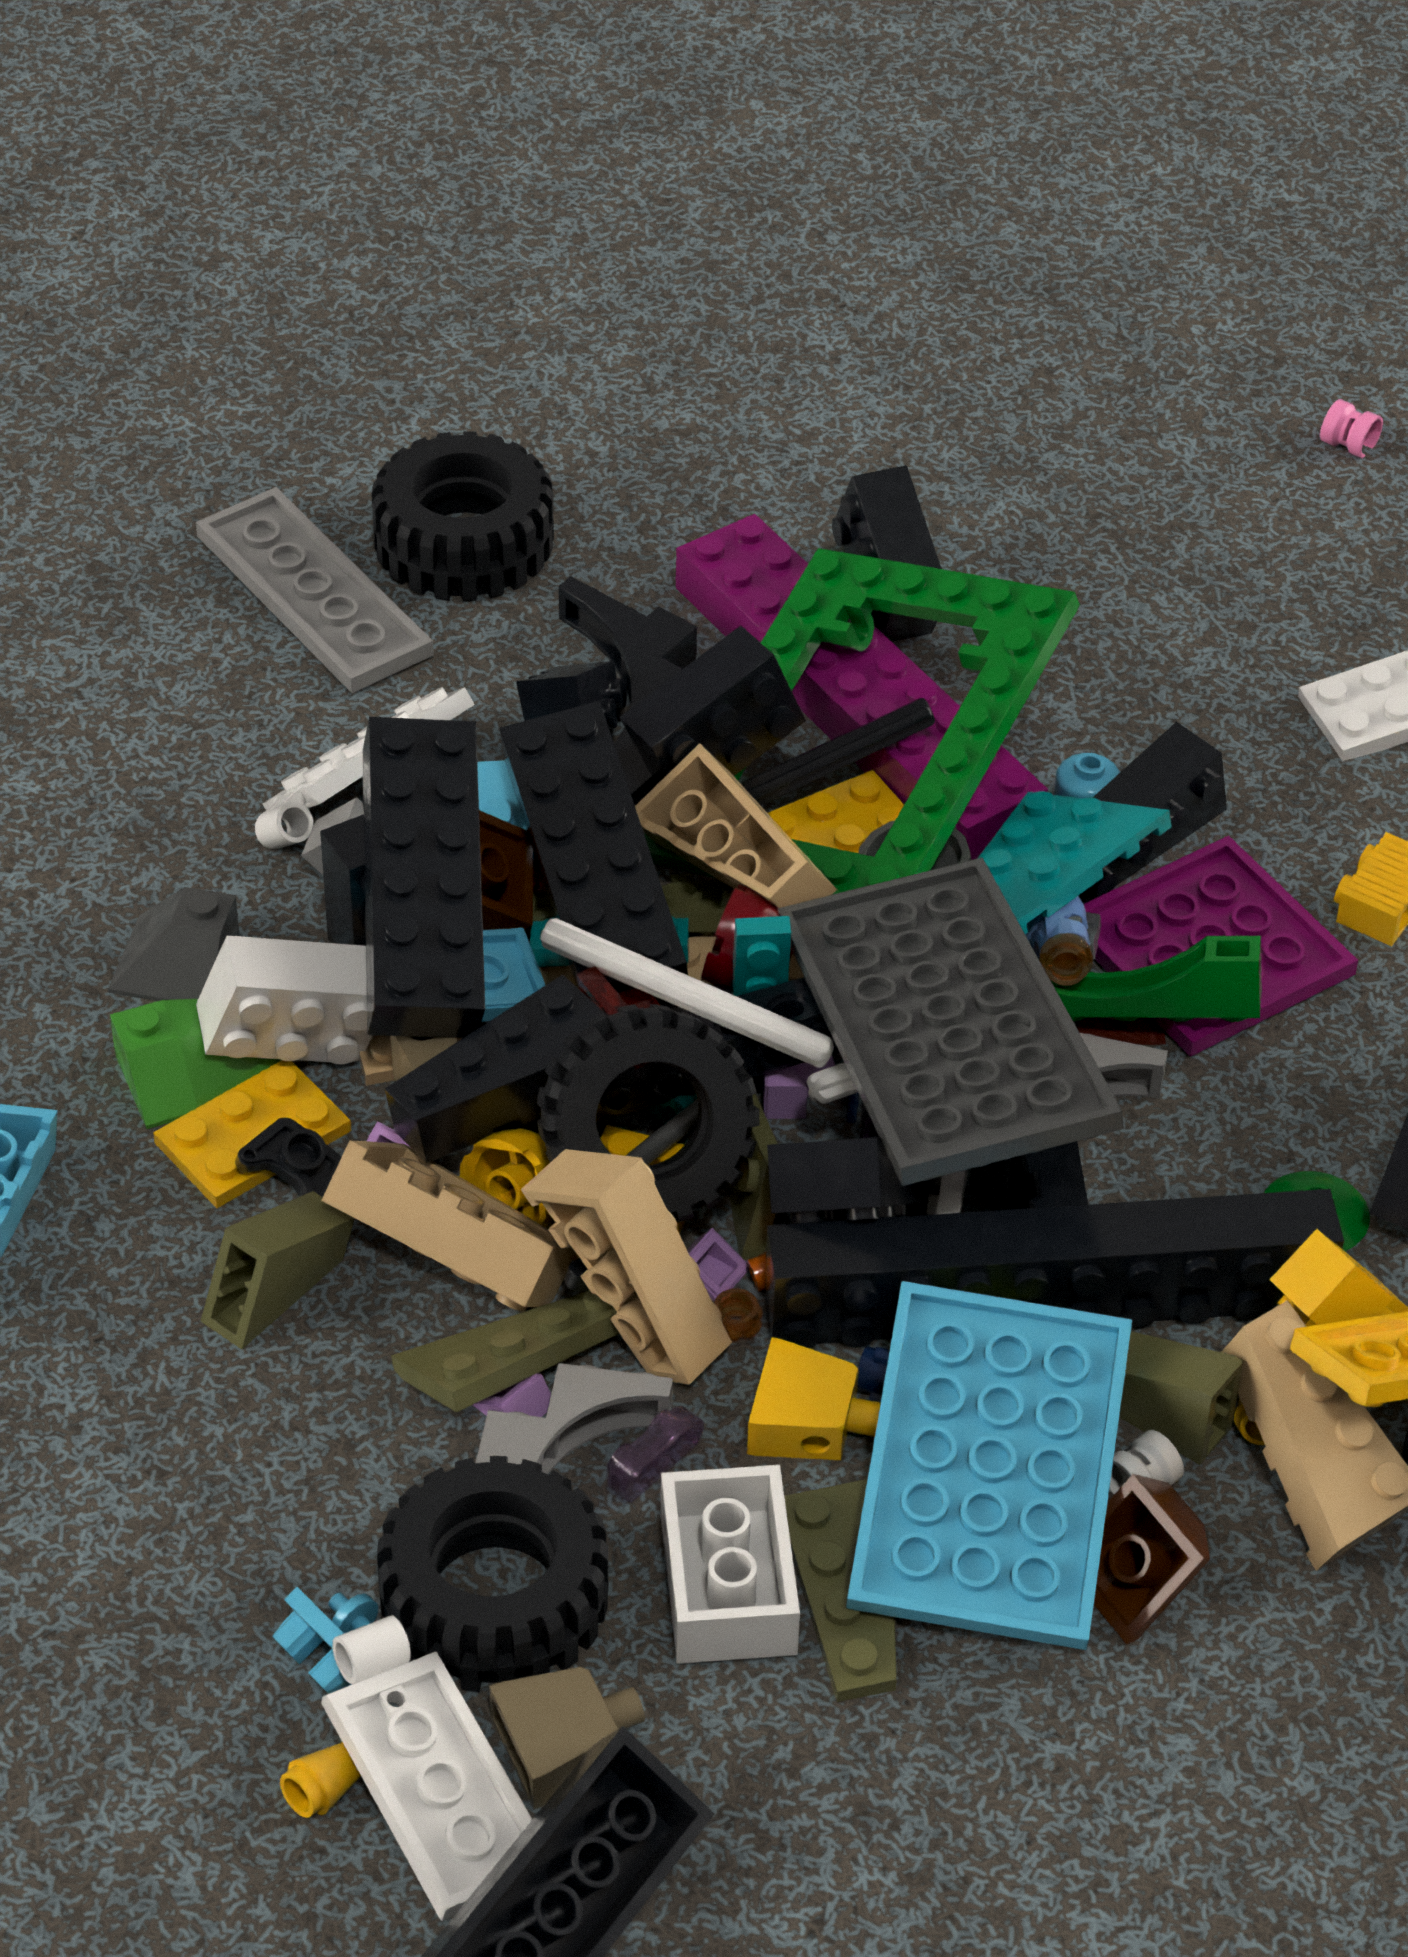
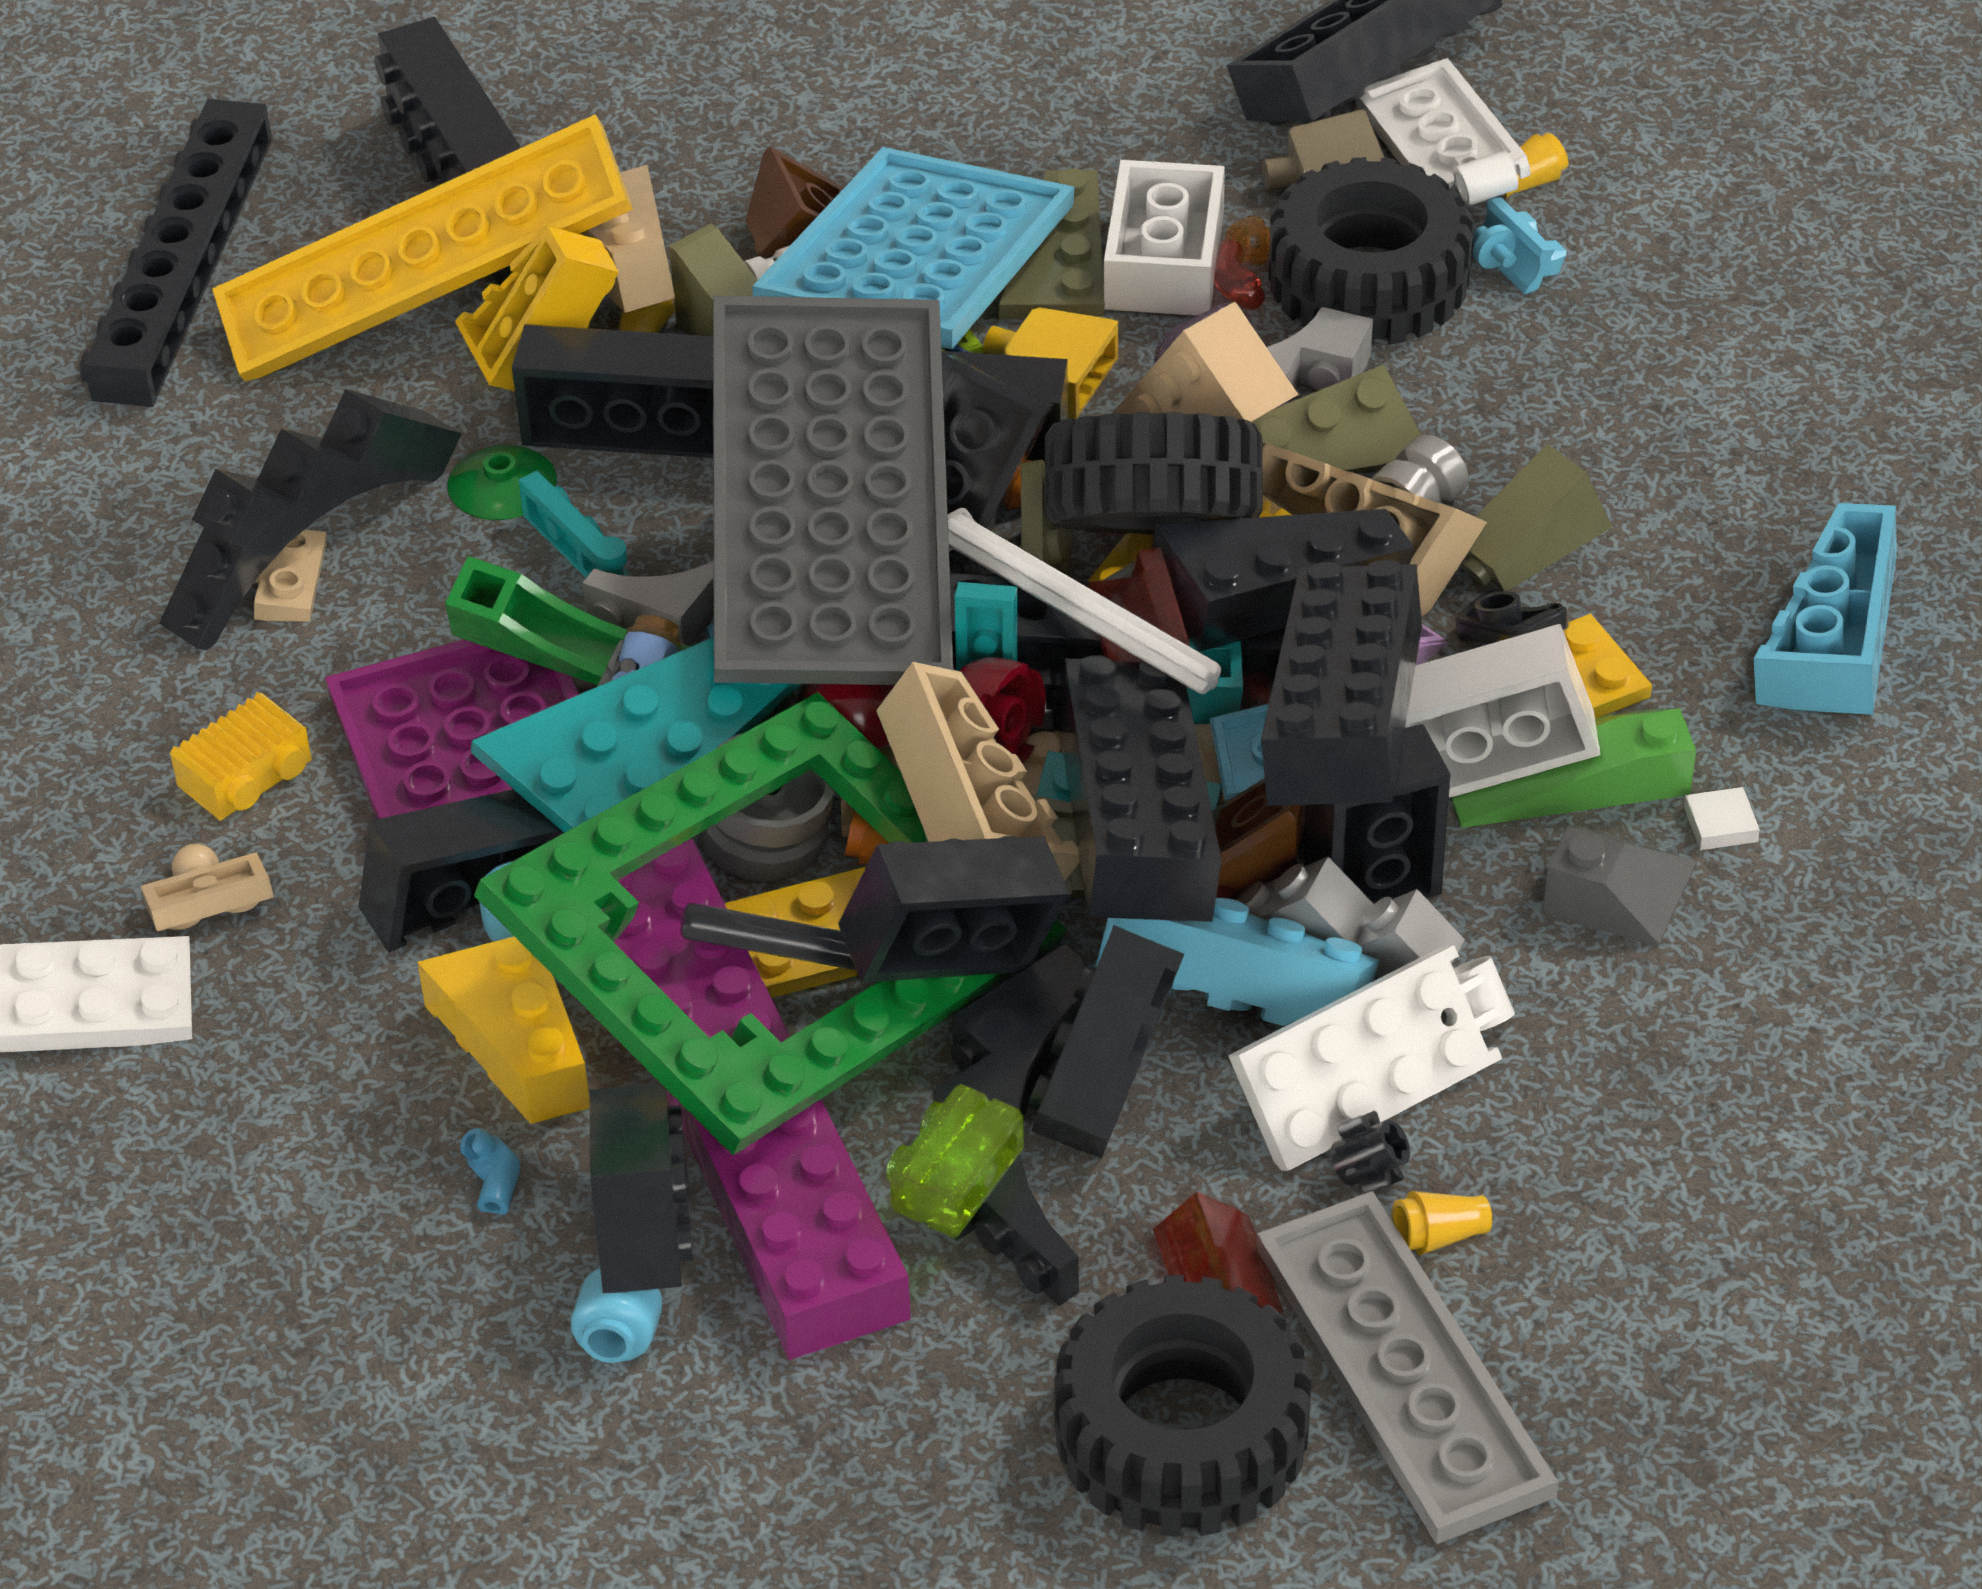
camera: 165 degrees left, 0 degrees up
(84, 1025) = (1721, 818): none -> white tile
(298, 677) = (1438, 1220): none -> yellow cone
(355, 701) = (1370, 1152): none -> black gear
(401, 1294) = (1427, 469): none -> light grey wheel
(458, 631) = (1215, 1243): none -> clear red panel
(635, 1608) = (1243, 231): none -> clear orange plate
(645, 1549) = (1235, 279): none -> clear red arm
(663, 604) = (955, 1159): none -> clear neon green brick
(1070, 717) = (512, 1023): none -> yellow wedge
(1209, 1133) = (568, 530): none -> teal plate
(1353, 782) = (205, 888): none -> tan plate

